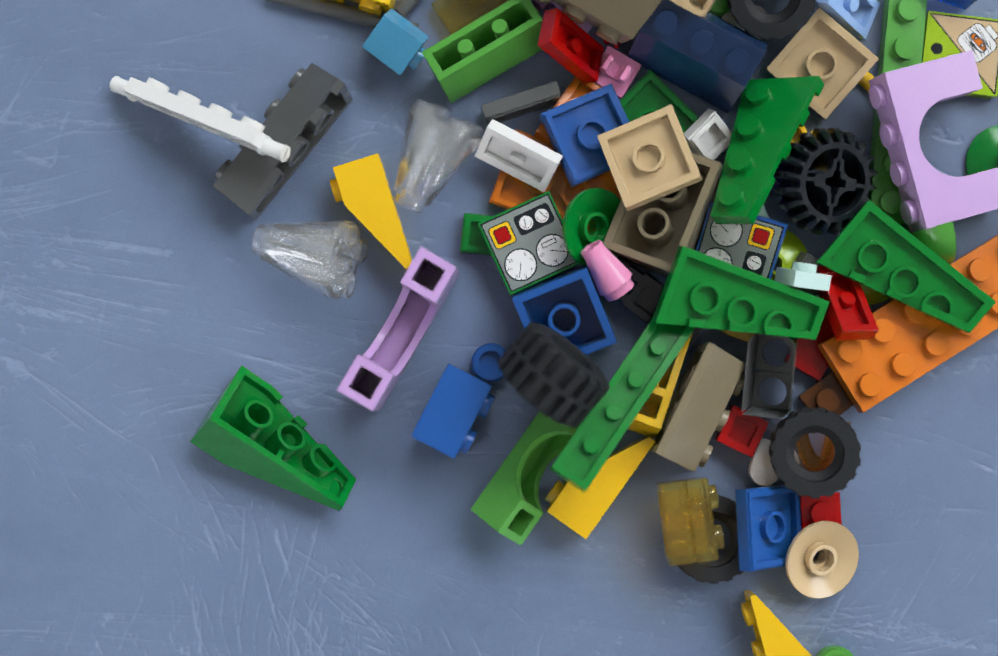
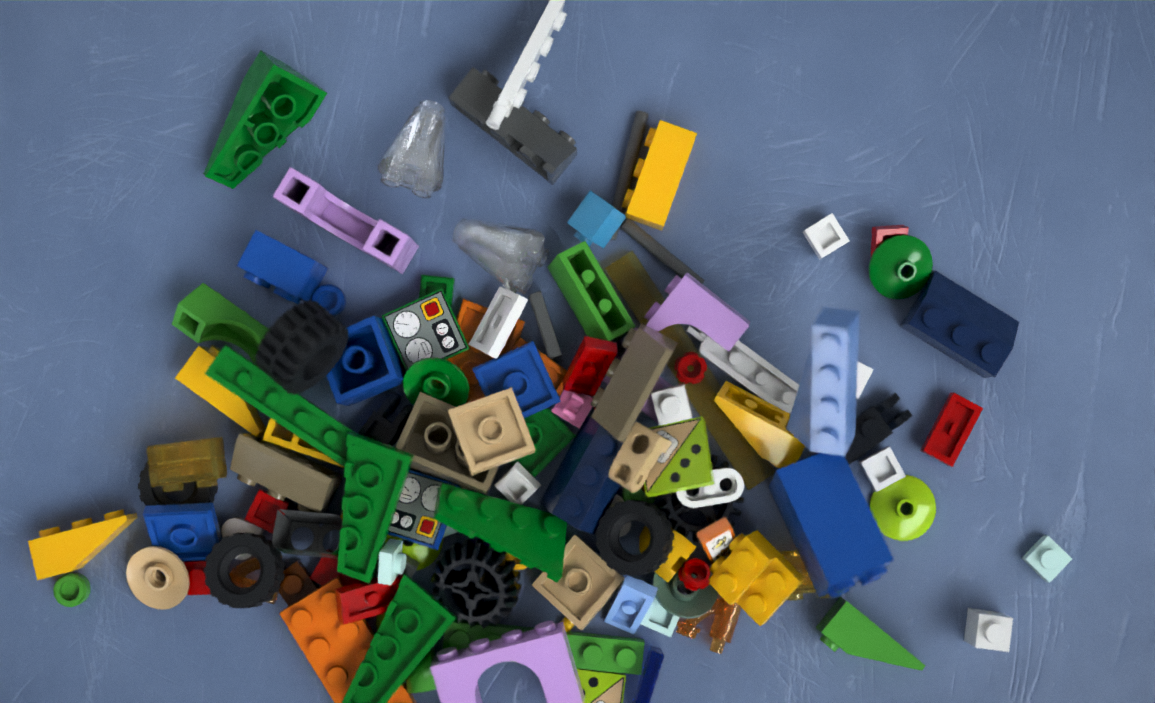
camera: 90 degrees right, 0 degrees up
(369, 198) = (462, 198): yellow slope -> none
(608, 273) = (396, 396): bright pink cone -> none

